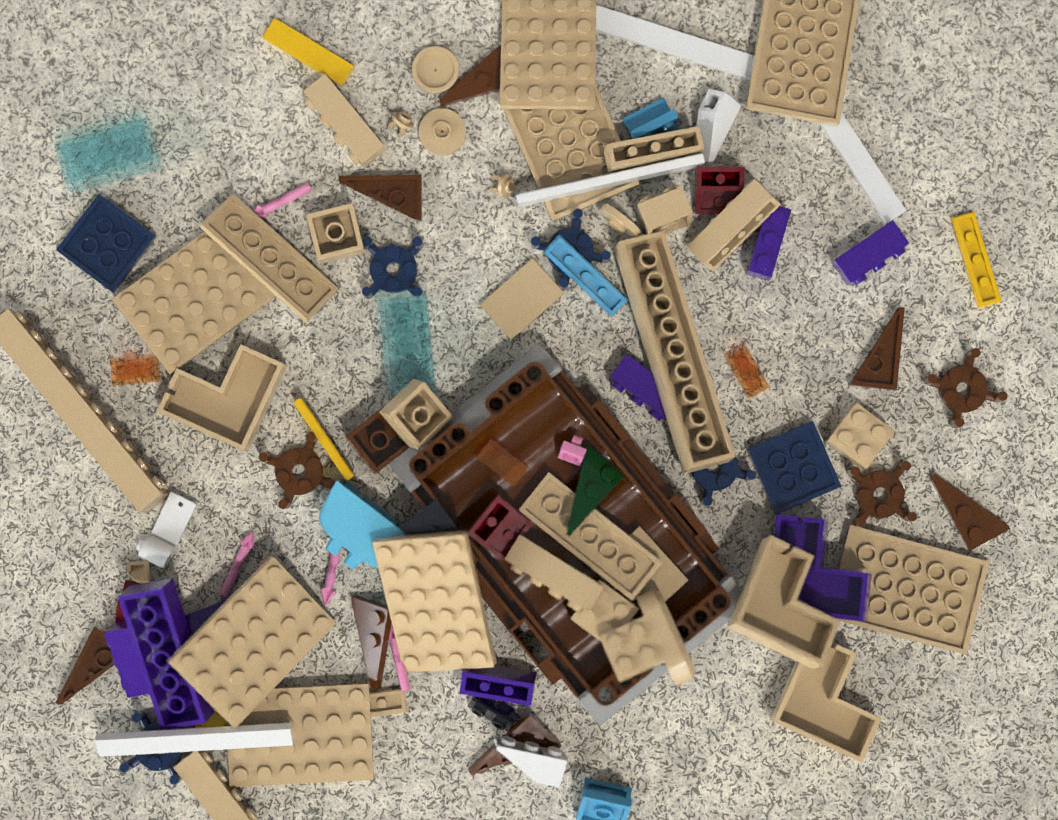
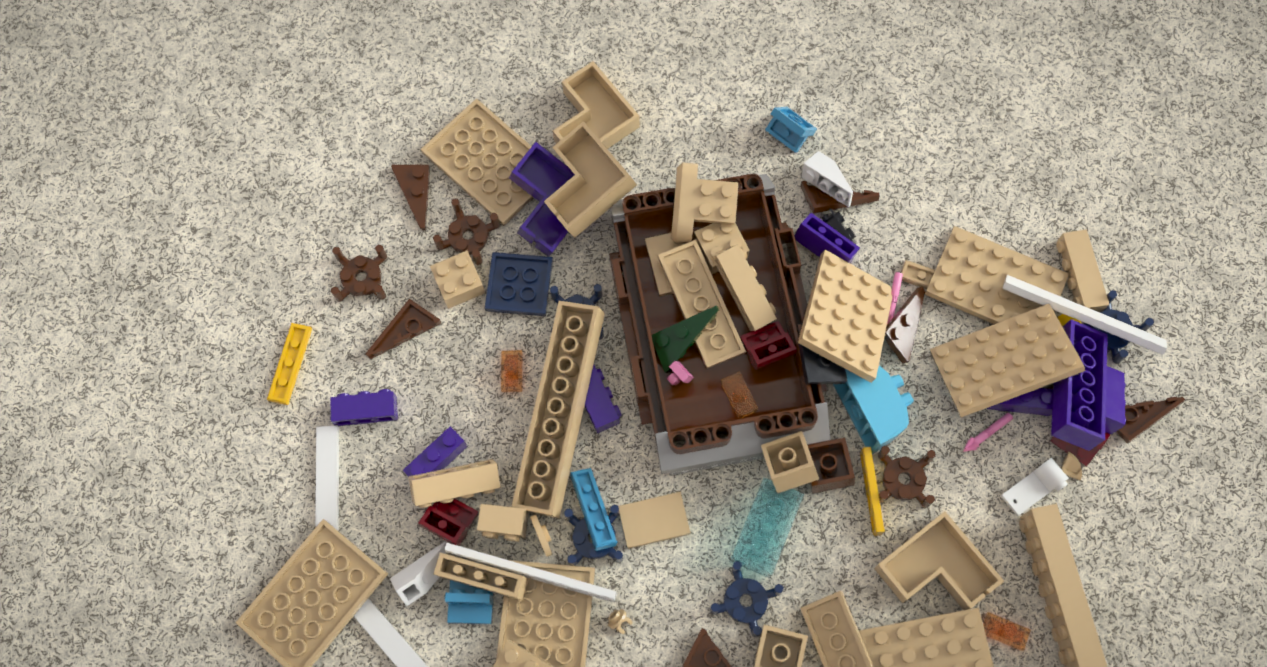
camera: 150 degrees left, 15 degrees down
(328, 592) = (924, 376): bright pink piece -> none

